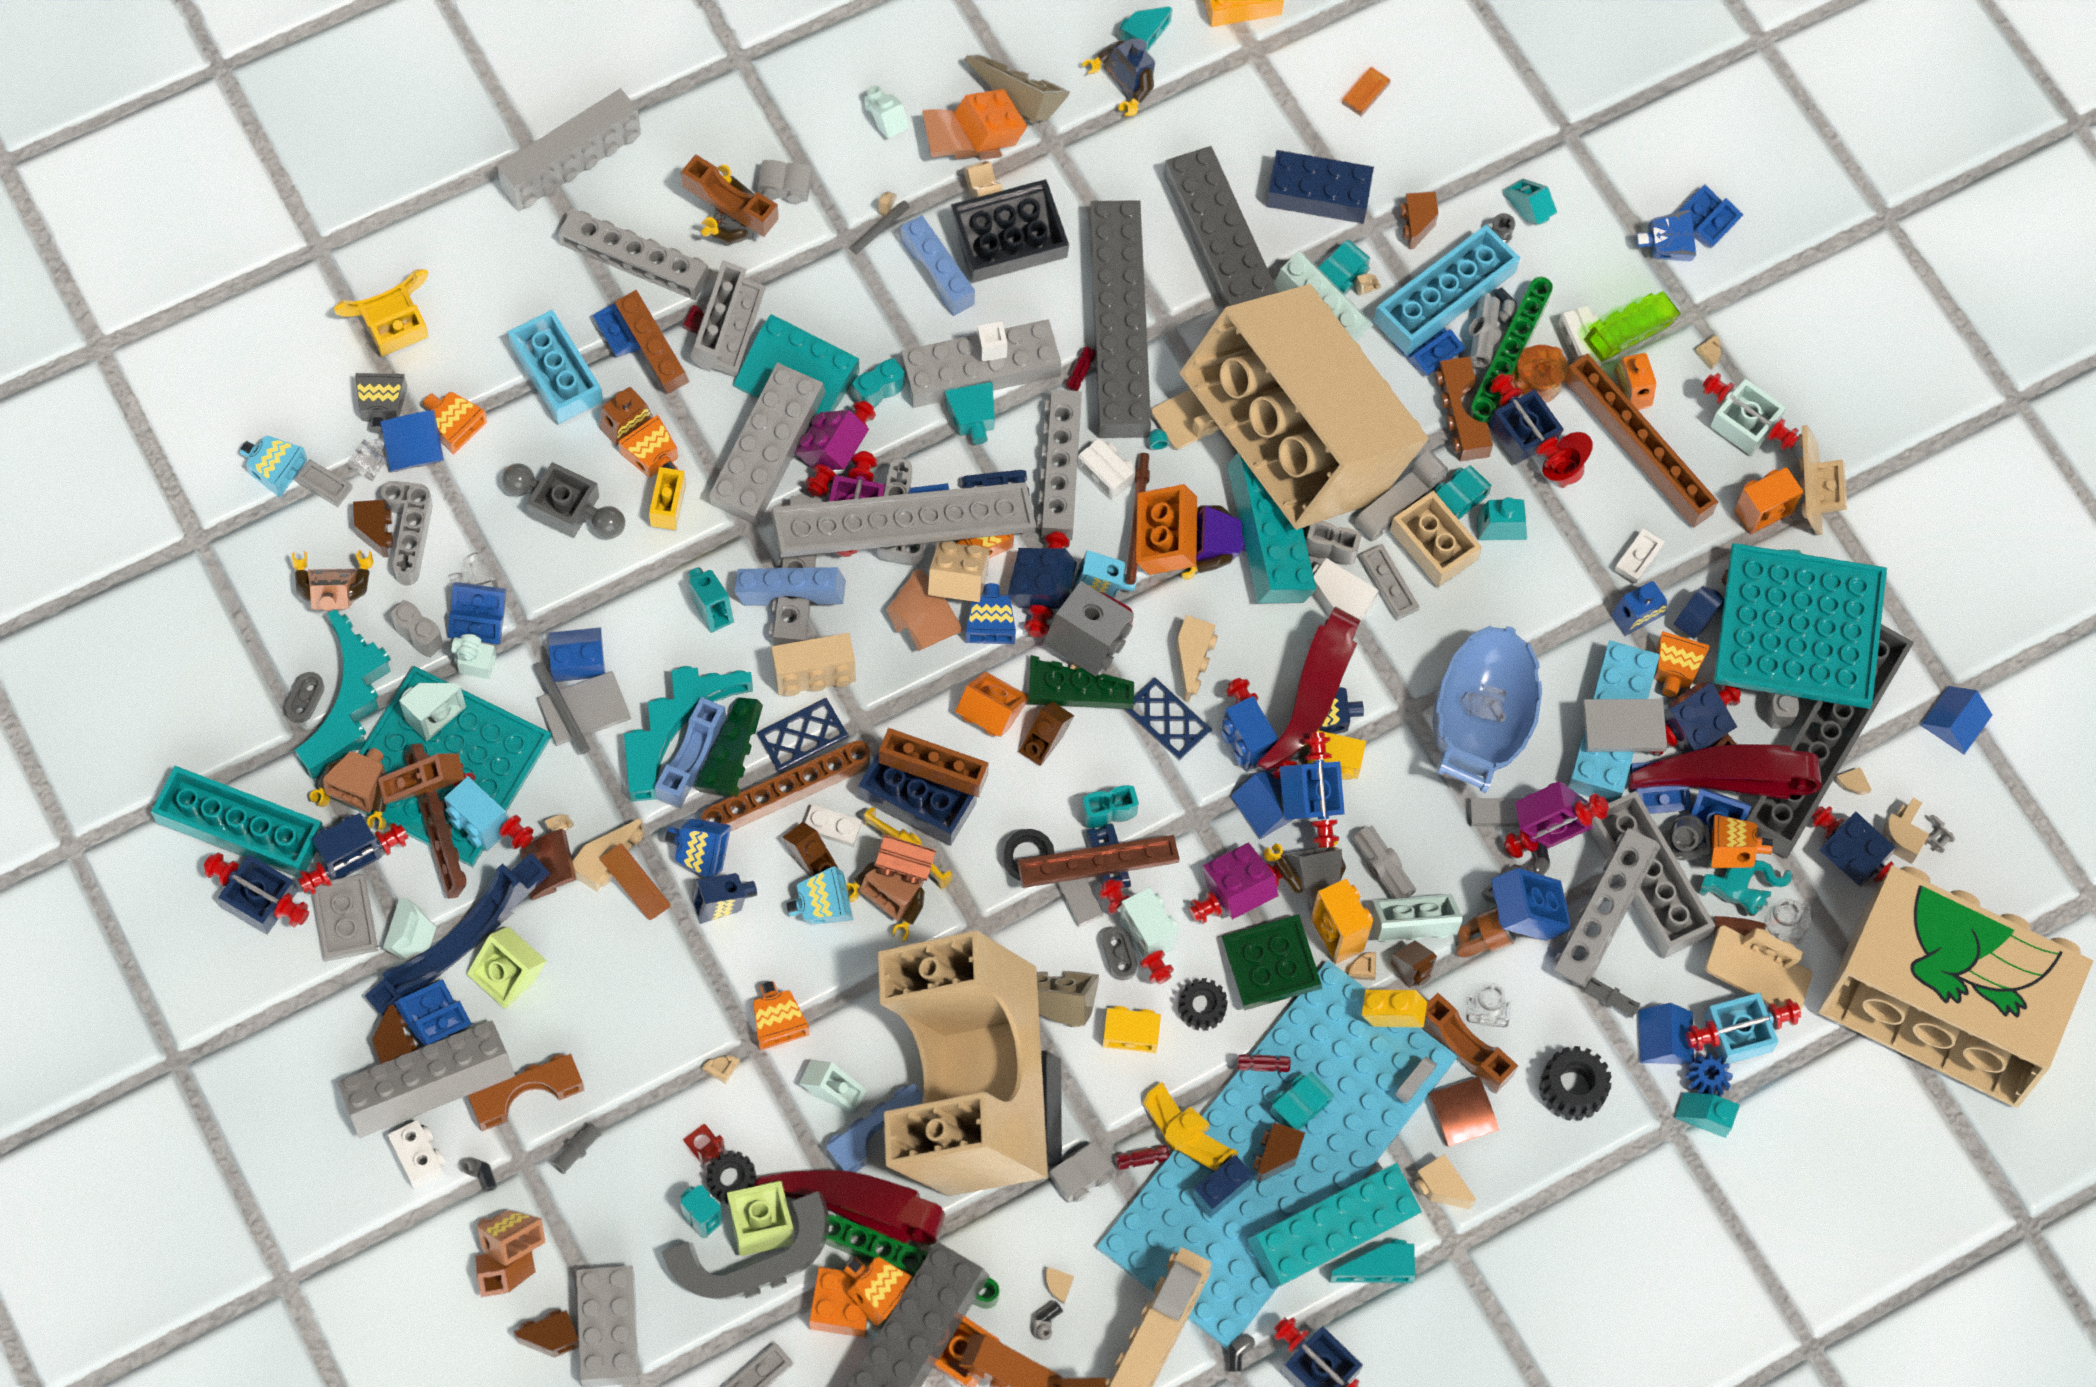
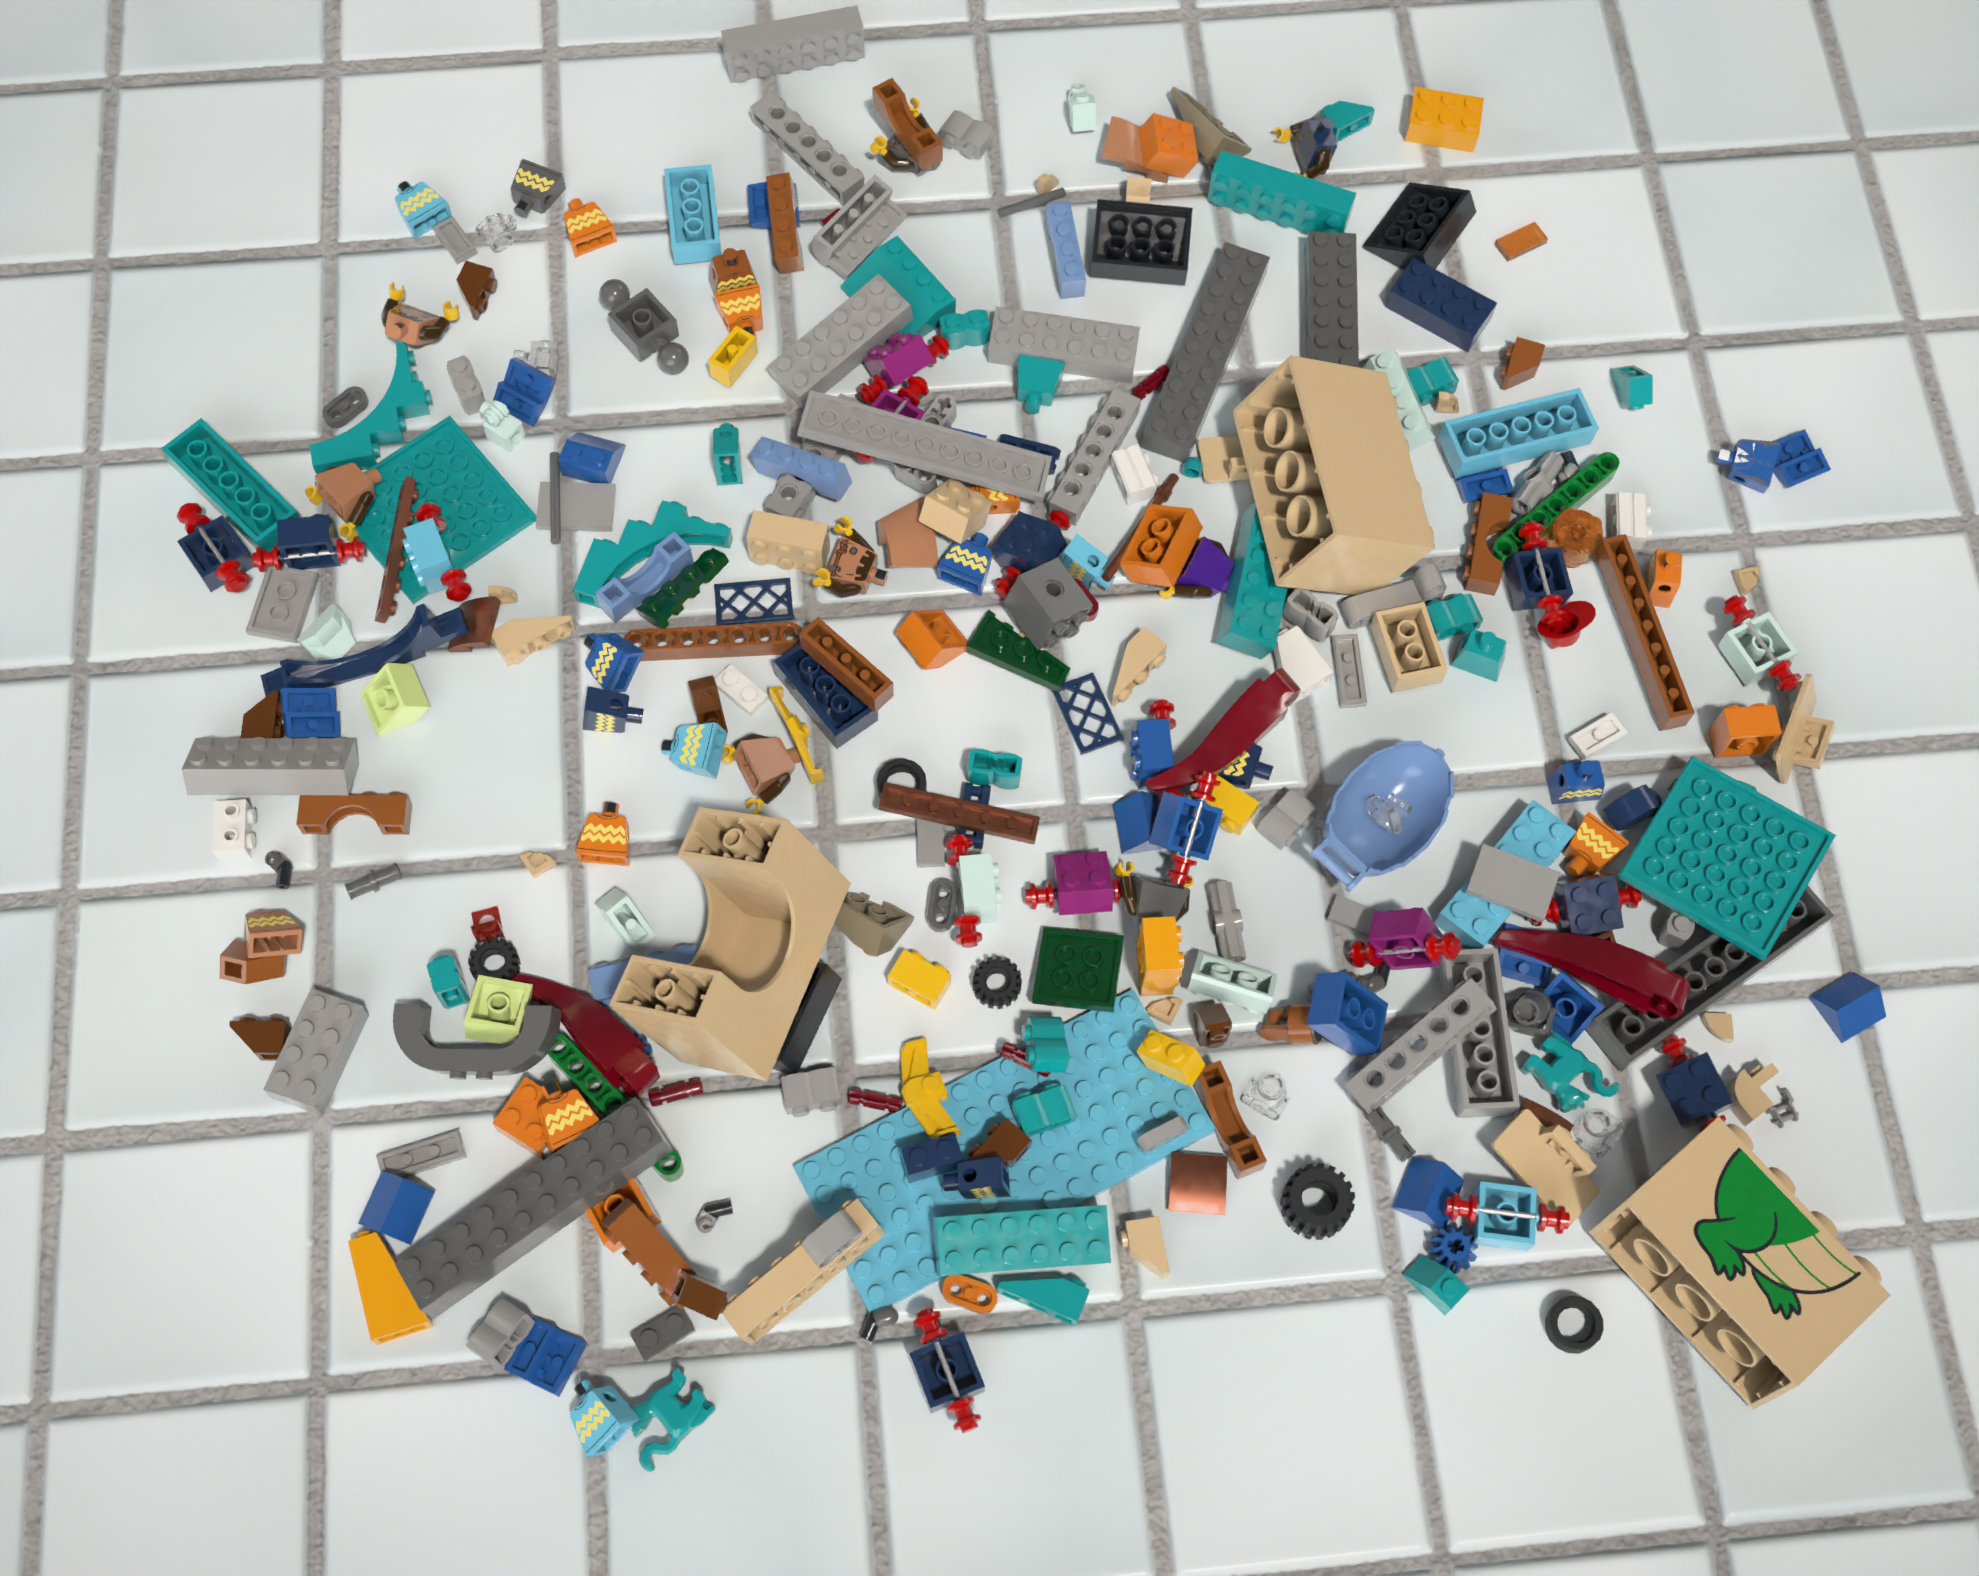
camera: 25 degrees right, 0 degrees up
(391, 315) = (577, 128): yellow piece -> none
(409, 534) = (506, 302): light grey beam -> none
(412, 440) = (542, 230): blue slope -> none
(421, 777) = (395, 504): dark orange slope -> none
(431, 706) = (440, 451): light aqua slope -> none
(635, 881) = (538, 668): dark orange slope -> none
(882, 662) = (851, 566): none -> torso
(905, 858) = (780, 739): brick -> none
(960, 1224) = (676, 1092): none -> dark red axle
(992, 341) = (1077, 324): white panel -> none
(1046, 732) = (969, 682): reddish brown slope -> none
(1059, 1284) = (741, 1185): tan tile -> none
(1122, 133) = (1279, 195): none -> teal brick
(1266, 111) = (1422, 225): none -> black slope
(1277, 1041) = (1046, 1044): none -> teal brick
(1282, 1178) = (990, 1180): none -> dark blue torso
(1307, 1293) = (970, 1291): none -> orange plate
(1395, 746) = (1287, 819): none -> light grey brick
(1503, 226) = (1595, 398): dark grey bush -> none
(1631, 325) = (1679, 526): clear neon green brick -> none
(1736, 843) = (1575, 1036): orange torso -> none
(1853, 1085) = (1589, 1310): none -> black tyre

